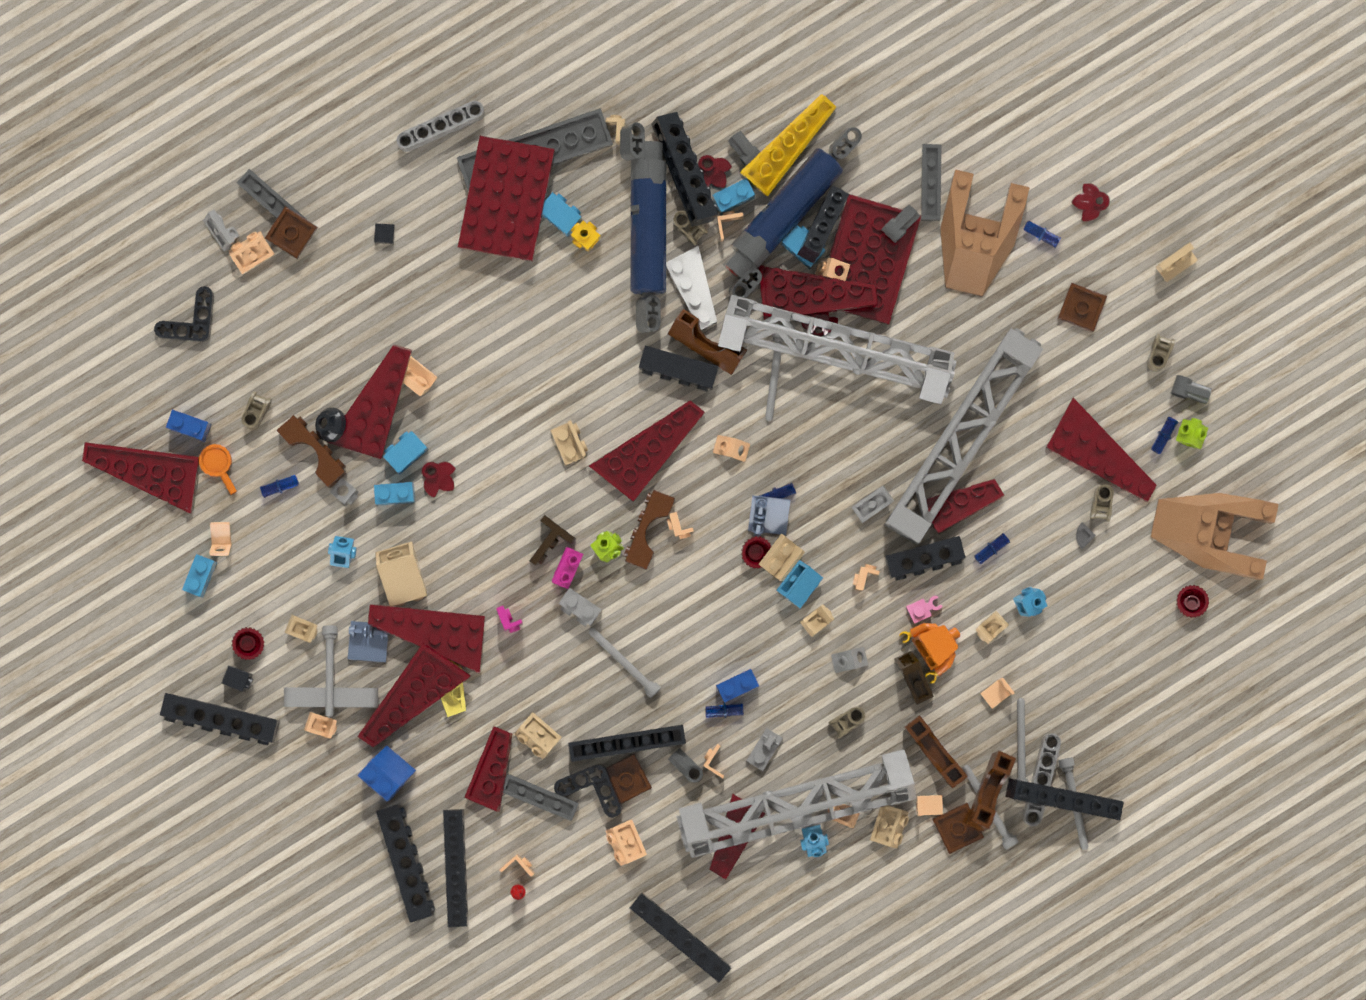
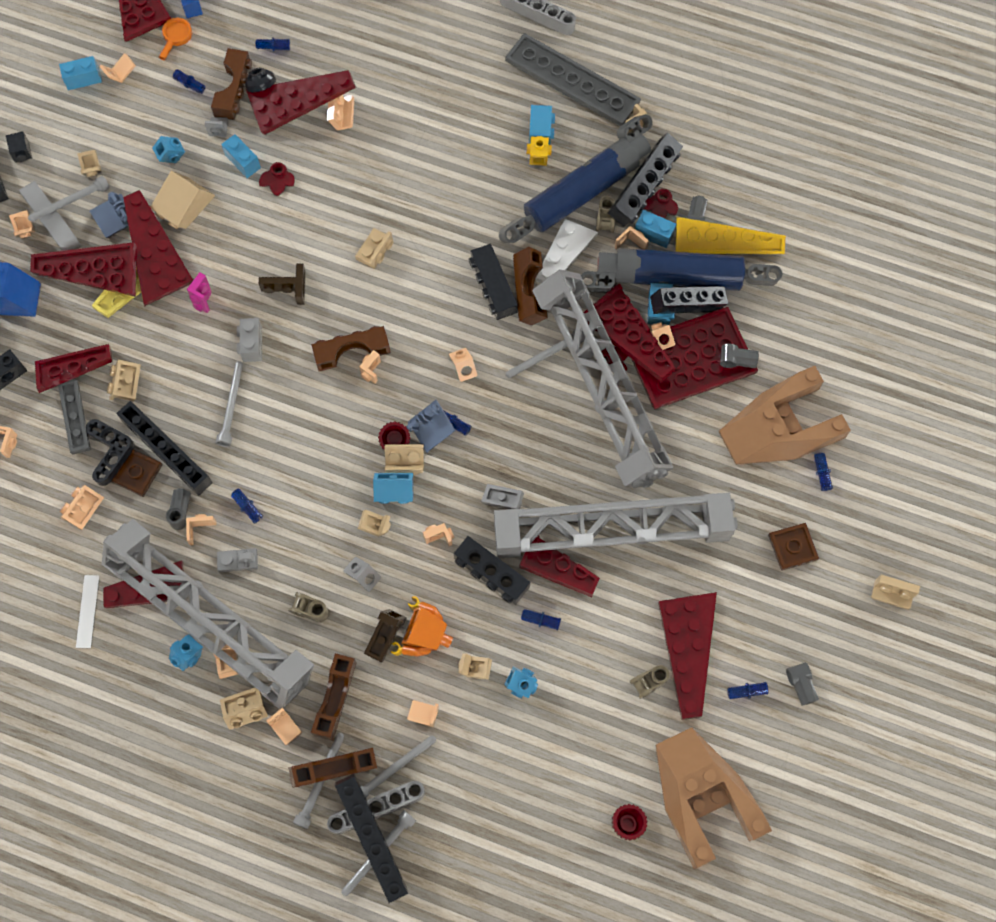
camera: 50 degrees right, 15 degrees down
(247, 643) = (51, 136): dark red hat -> none
(255, 409) = (230, 31): dark tan piece -> none
(296, 385) = (274, 44): none -> clear blue axle
(384, 233) = (430, 27): black tile -> none
(405, 452) = (278, 143): dark azure brick -> none
(506, 198) = (521, 80): dark red plate -> none
(567, 568) = (273, 305): dark pink bracket -> none
(607, 546) = (313, 325): lime brick -> none
(641, 457) = (408, 305): dark red wing -> none
(680, 937) = (27, 604): black brick -> none
(717, 894) = (87, 611): none -> white sticker
(737, 685) = (274, 499): blue brick -> none
(921, 610) = (446, 599): bright pink plate -> none
(931, 182) = (789, 360): dark grey plate -> none
(953, 829) = (275, 767): reddish brown tile -> none
(1084, 535) = (612, 688): flat silver tile -> none
(1088, 202) = (879, 488): dark red plate -> none
(1160, 349) = (814, 633): dark tan piece -> none
(1192, 433) = (768, 711): lime brick -> none

